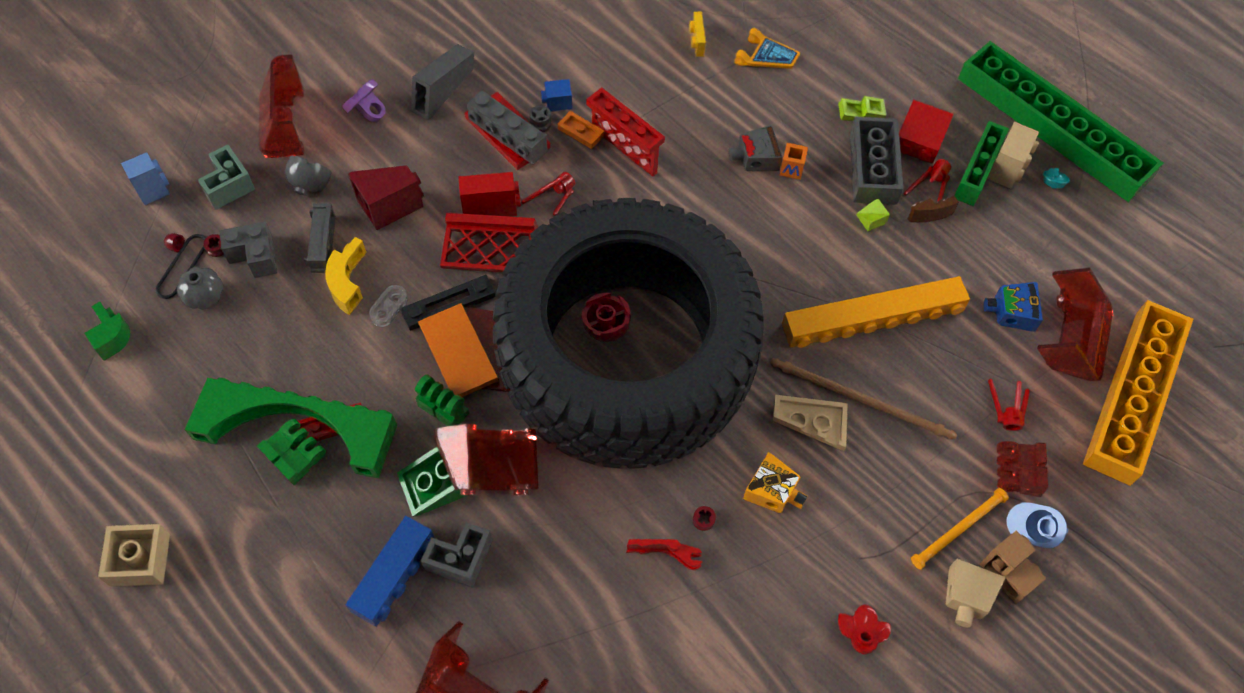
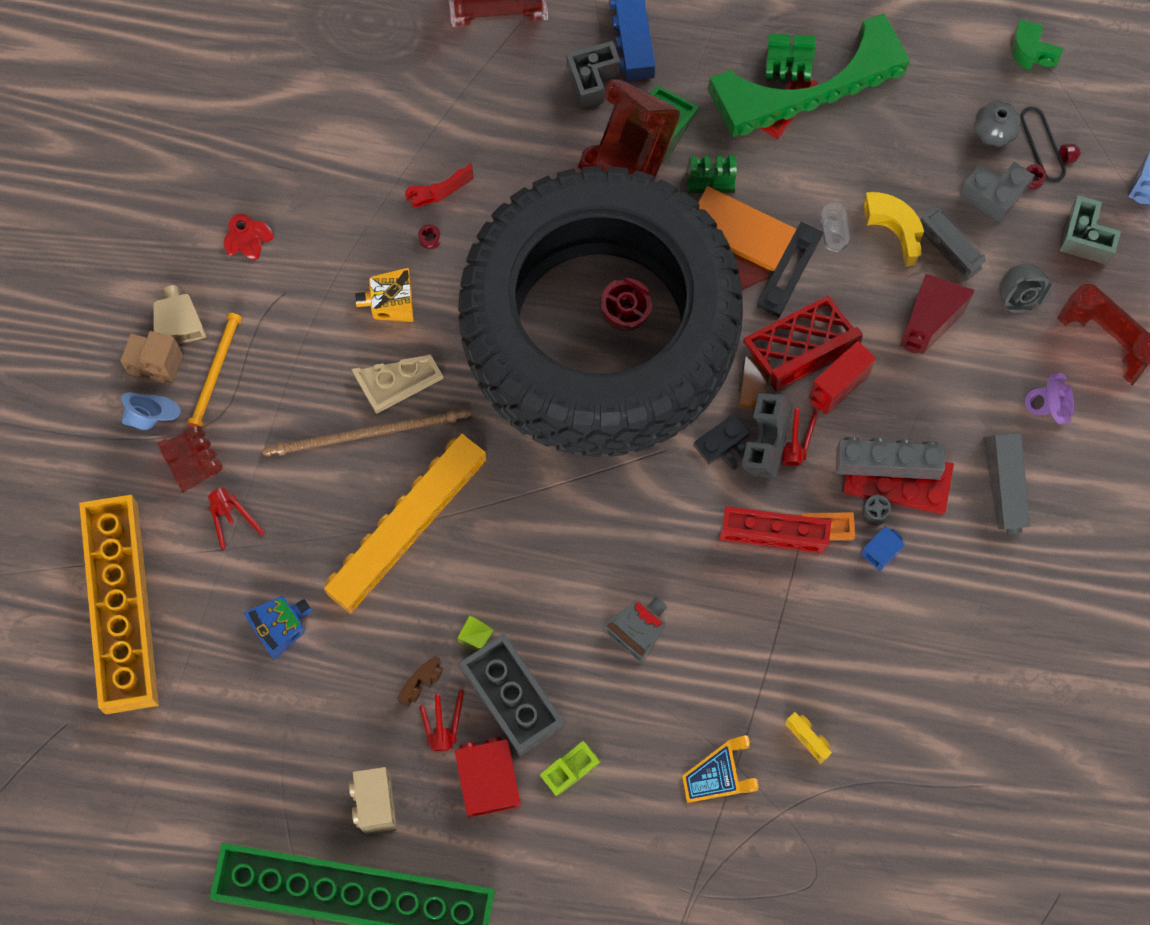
camera: 145 degrees right, 10 degrees up
(574, 195) = (773, 419): none -> dark grey arch
(793, 161) = (591, 633): orange brick -> none
(981, 163) = (402, 771): green brick -> none
(1055, 178) = (317, 818): teal hat -> none
(1084, 326) = (196, 631): clear red windscreen -> none

